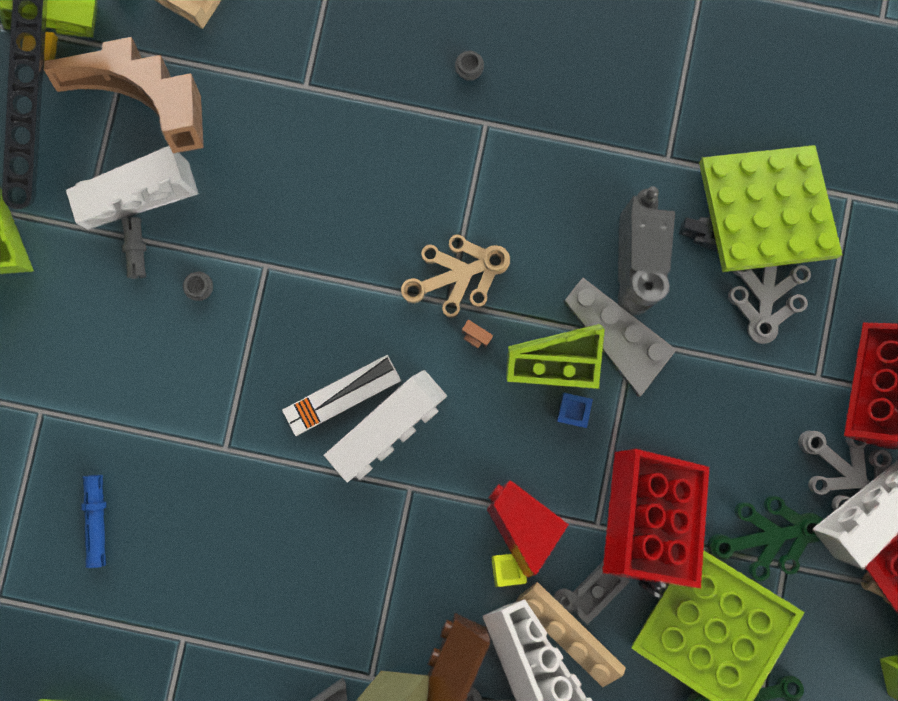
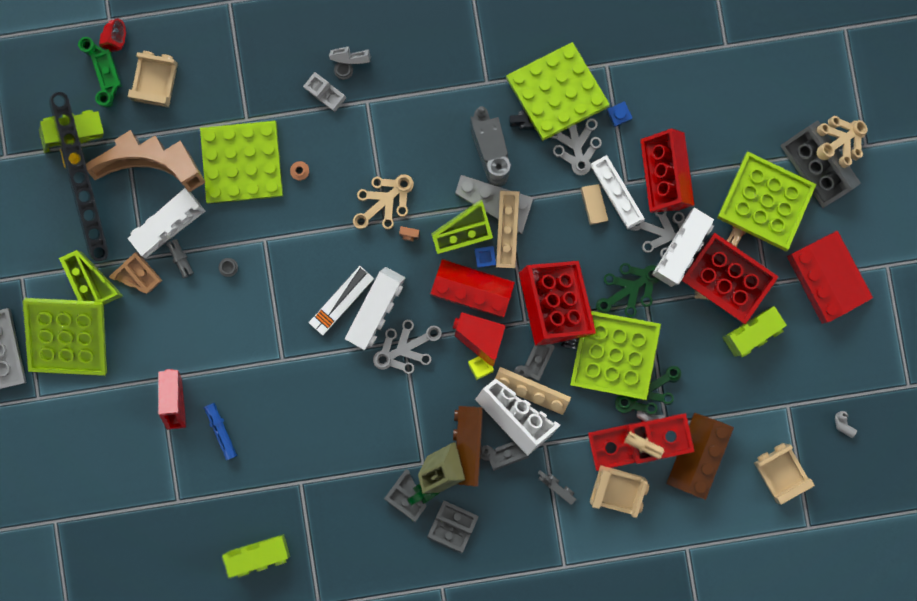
camera: 25 degrees left, 0 degrees up
(39, 447) = (171, 399): none -> slope
(64, 247) = (137, 273): none -> medium nougat wing
(274, 143) = (241, 162): none -> lime plate
(356, 193) = (303, 175): none -> nougat plate
(406, 500) = (404, 348): none -> light grey plant
(430, 87) = (324, 92): none -> light grey slope
(479, 45) = (344, 56): none -> light grey slope
(540, 450) = (472, 288): none -> red slope
(623, 382) = (507, 229): none -> tan plate
(760, 392) = (594, 204): none -> tan slope
(803, 388) = (617, 192): none -> white tile
(845, 274) = (619, 114): none -> blue plate

